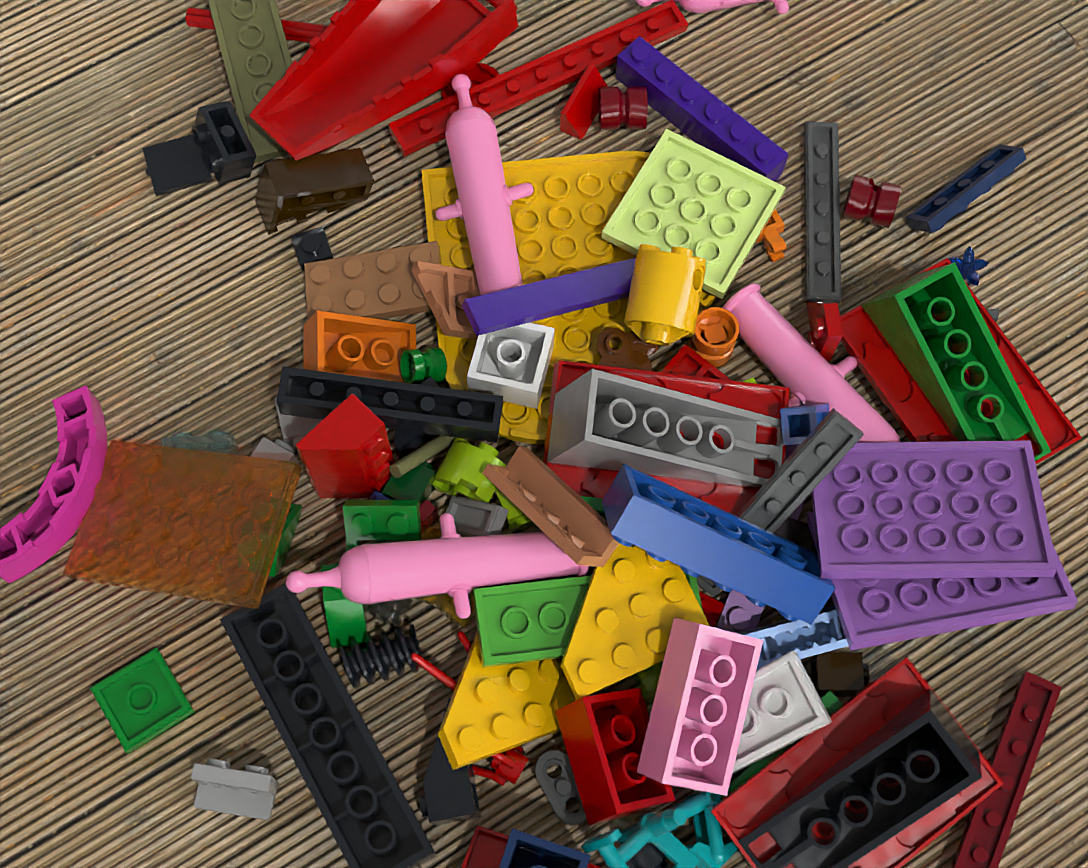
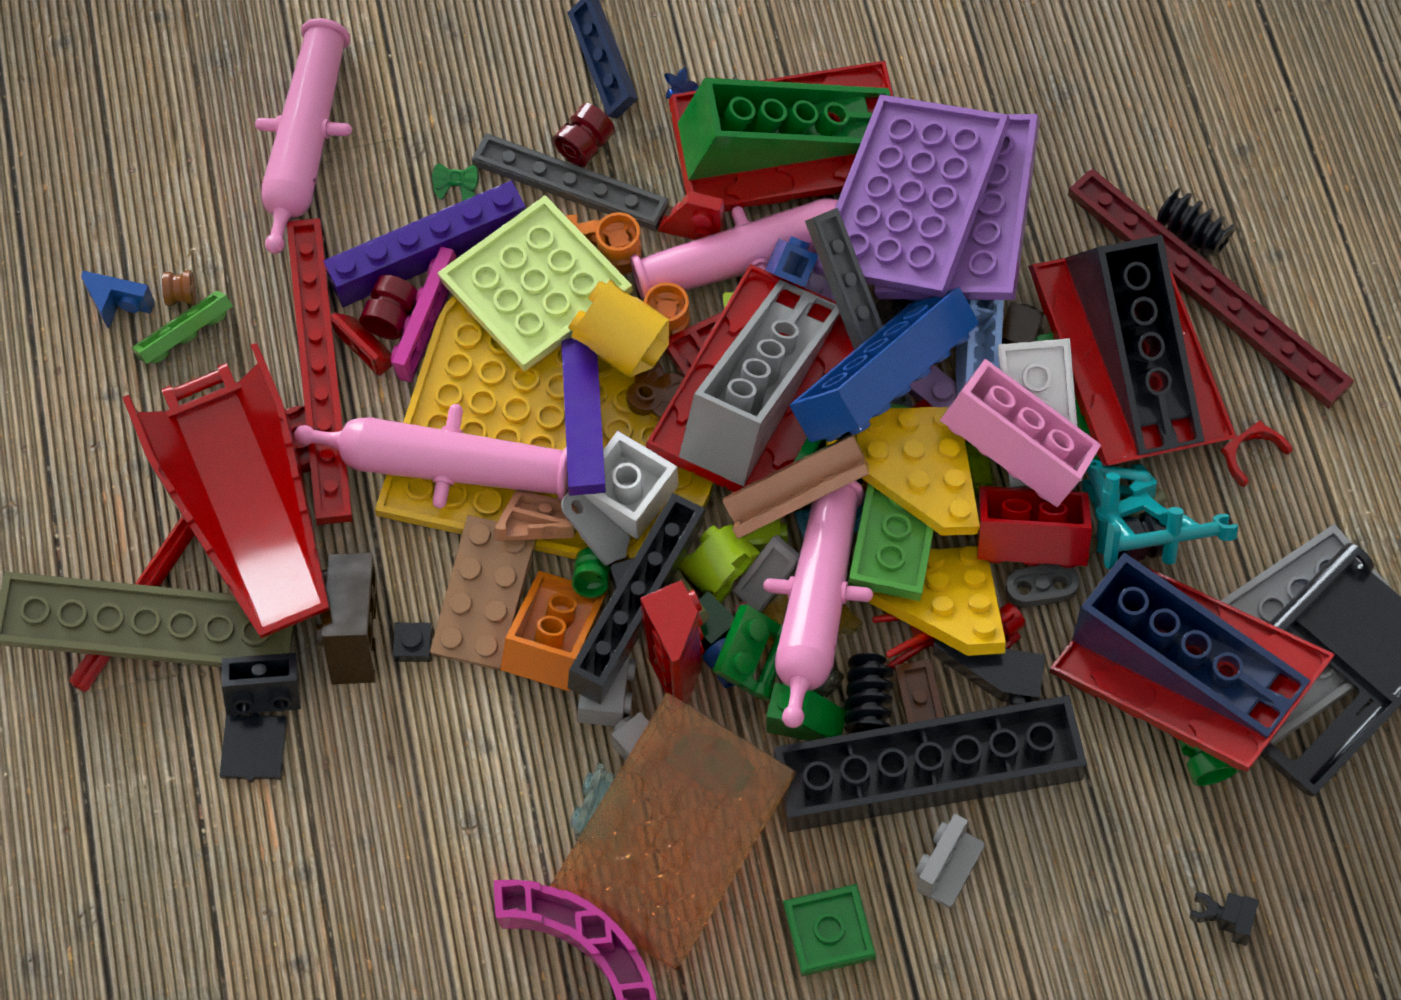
camera: 65 degrees left, 5 degrees down
(400, 707) = (918, 691): none -> reddish brown plate
(454, 354) = (596, 529): none -> light grey piece
(613, 138) = (420, 325): none -> dark pink plate
(770, 268) = (619, 239): none -> orange wheel
(776, 107) = (444, 178): none -> green piece
(1043, 818) = (1194, 225): none -> black piece

